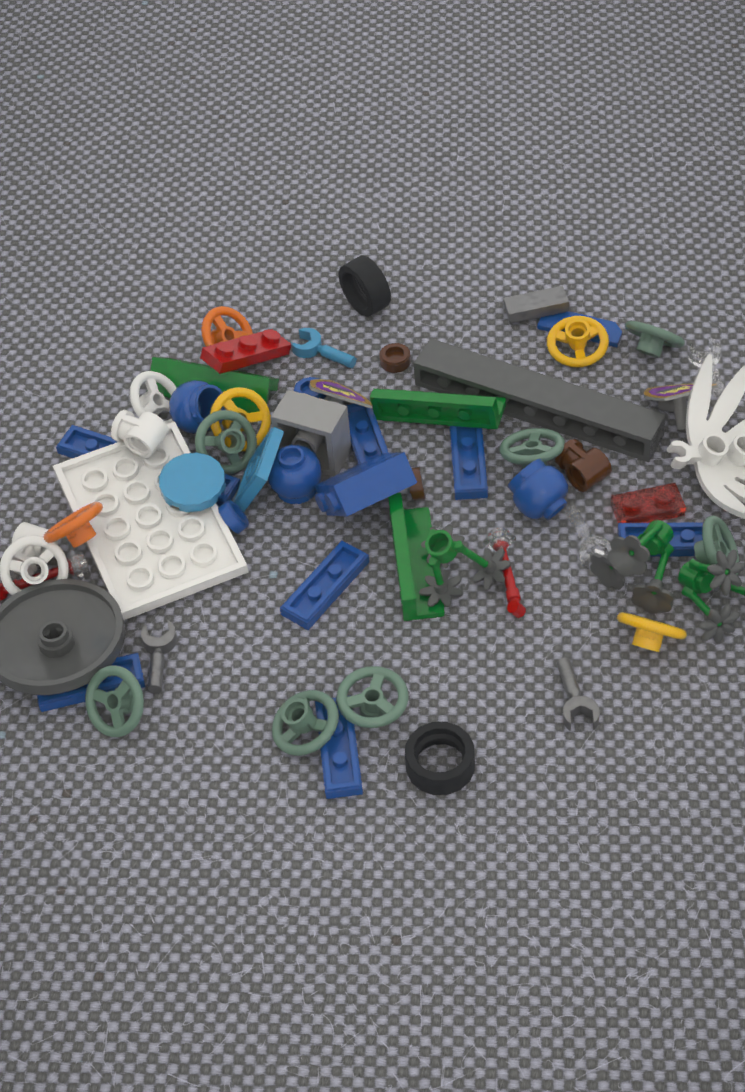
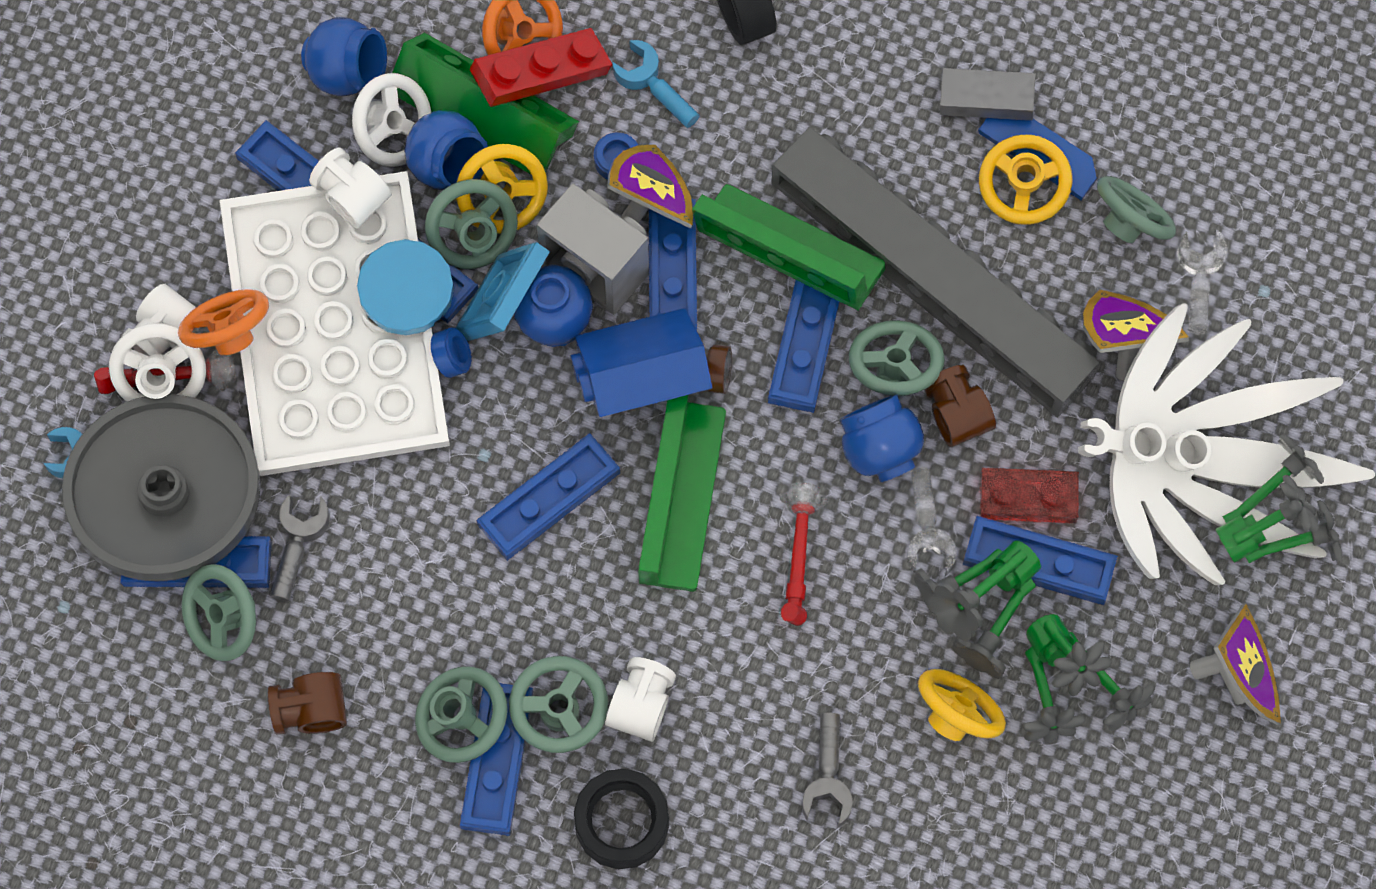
camera: 10 degrees right, 20 degrees up
(112, 374) = (343, 56): none -> blue piece
(196, 742) = (311, 705): none -> reddish brown piece
(395, 357) = (755, 129): reddish brown tile -> none
(429, 679) = (641, 701): none -> white piece
(442, 550) = (711, 520): plant -> none
(715, 537) = (1085, 605): sand green piece -> none

